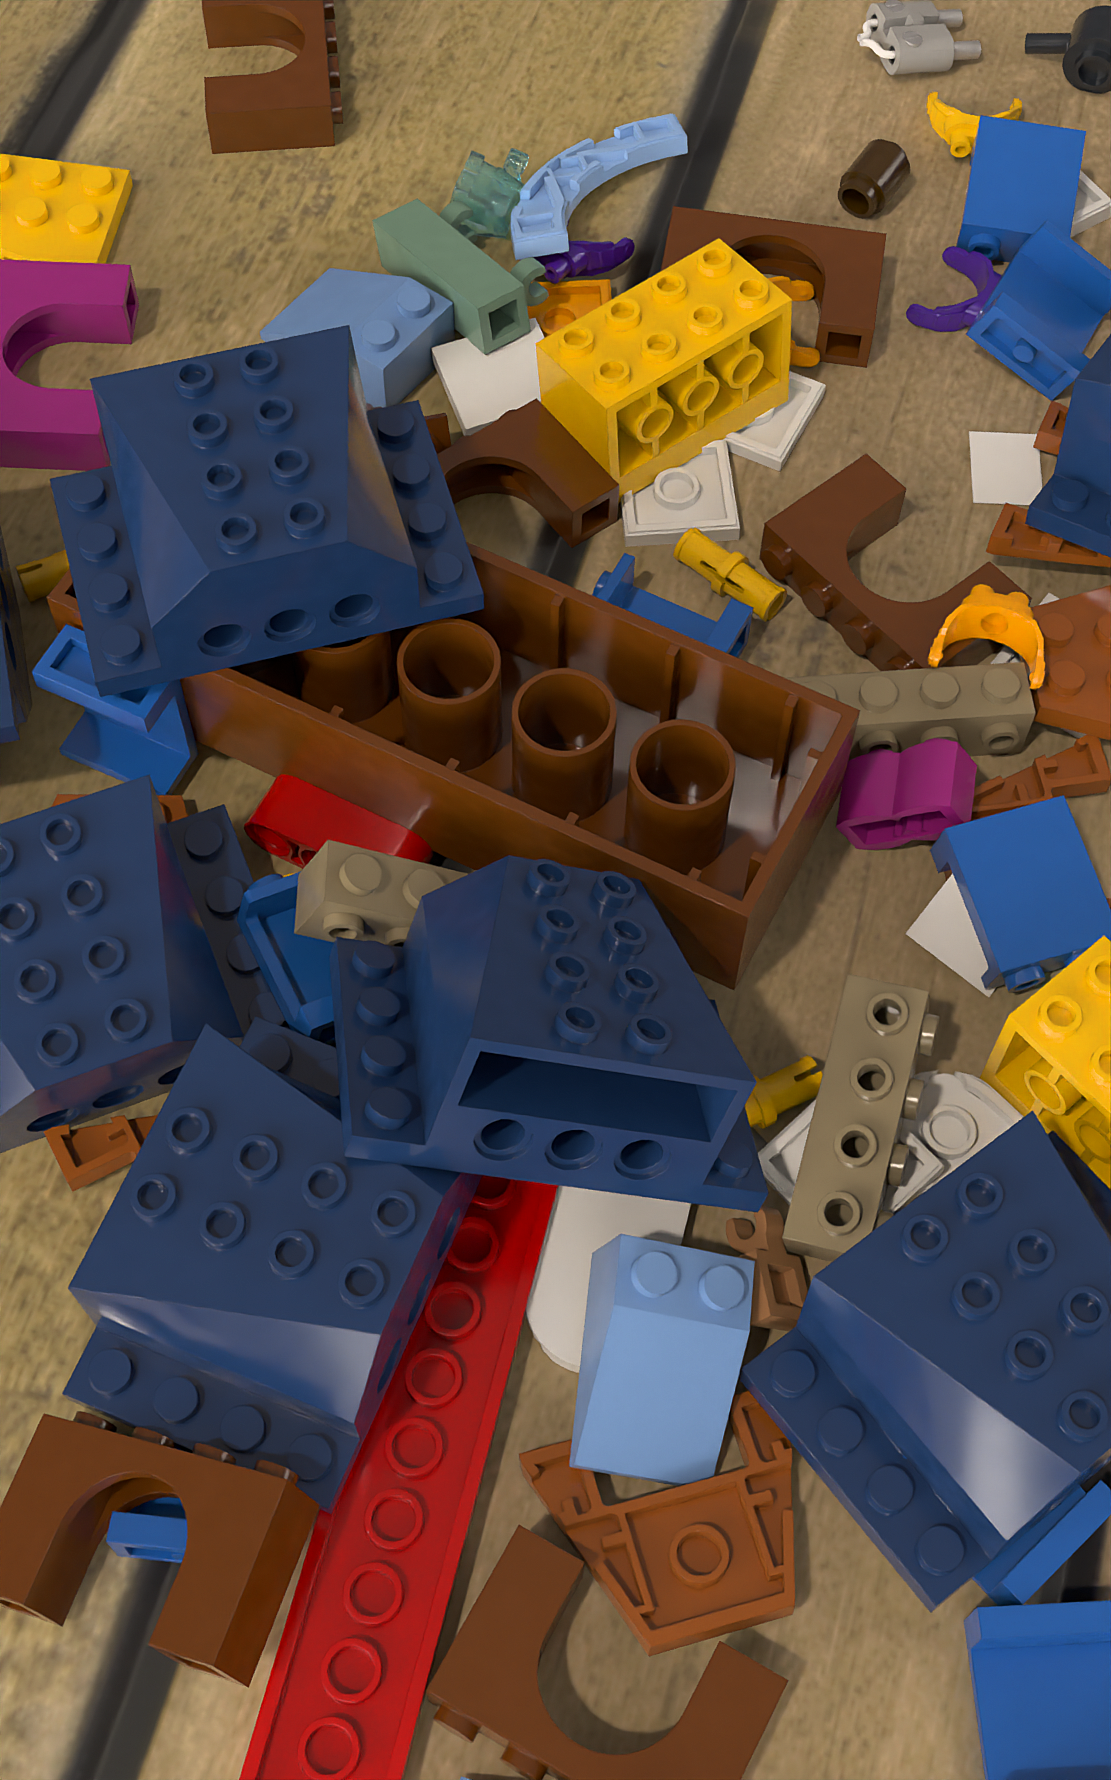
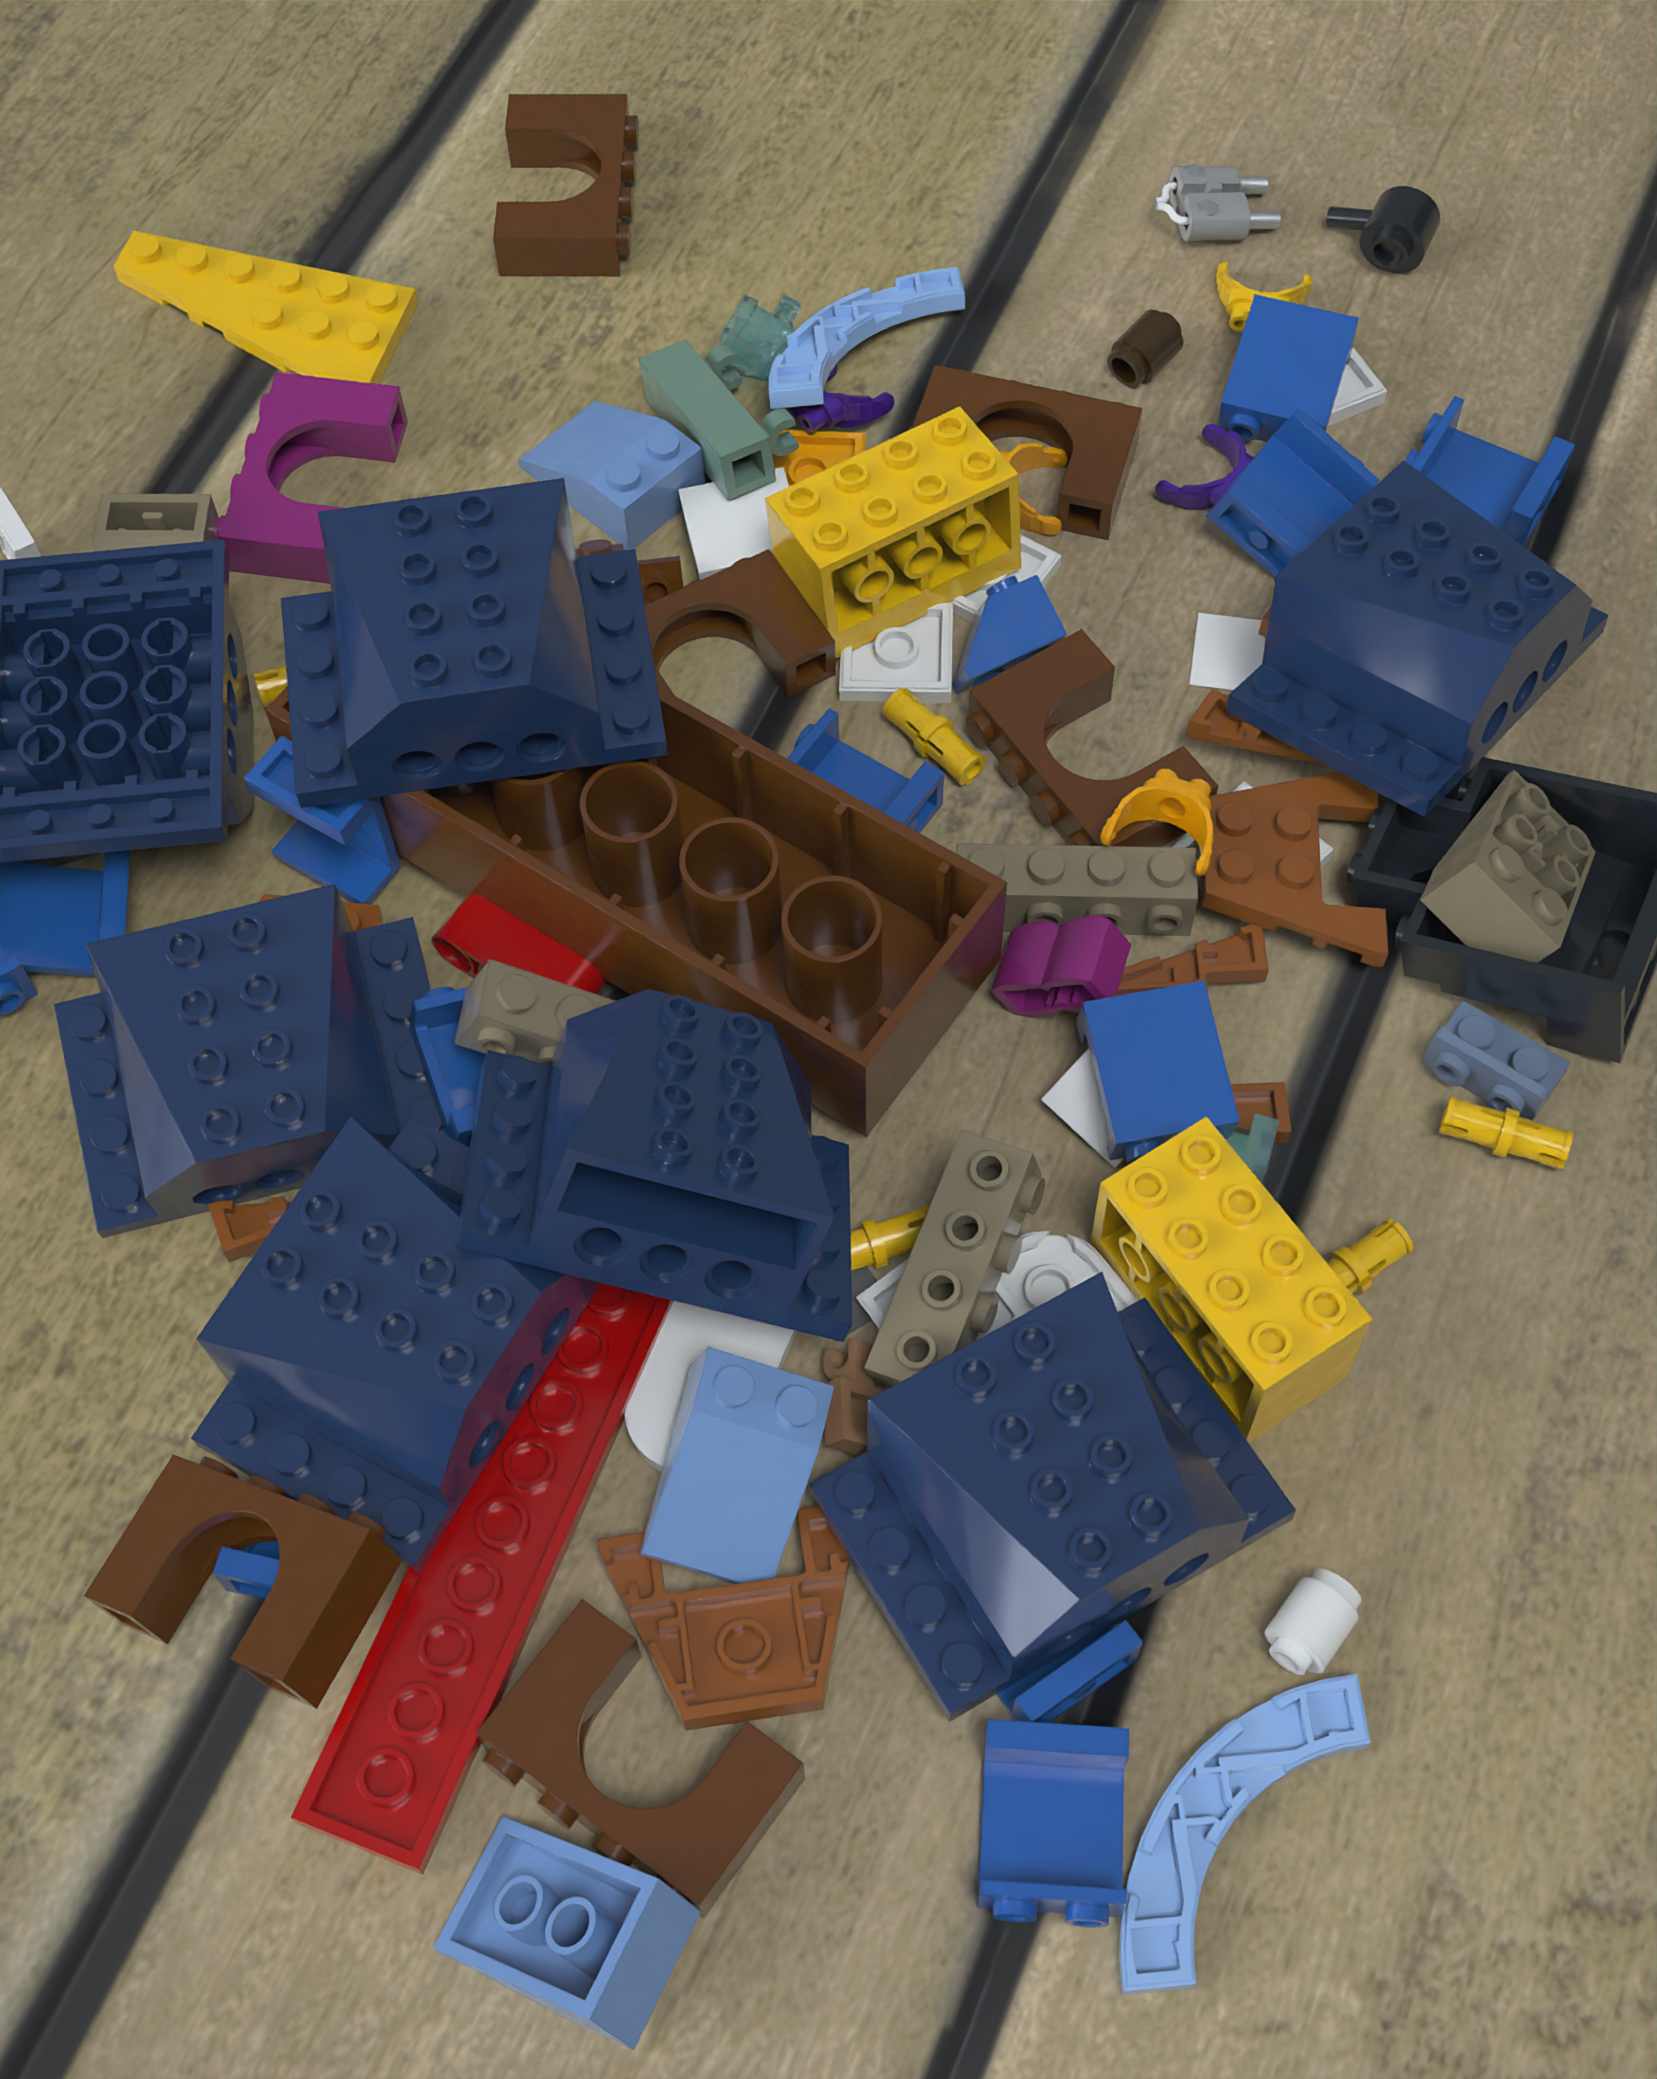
camera: 10 degrees right, 0 degrees up
(789, 462) = (1006, 630): none -> blue slope

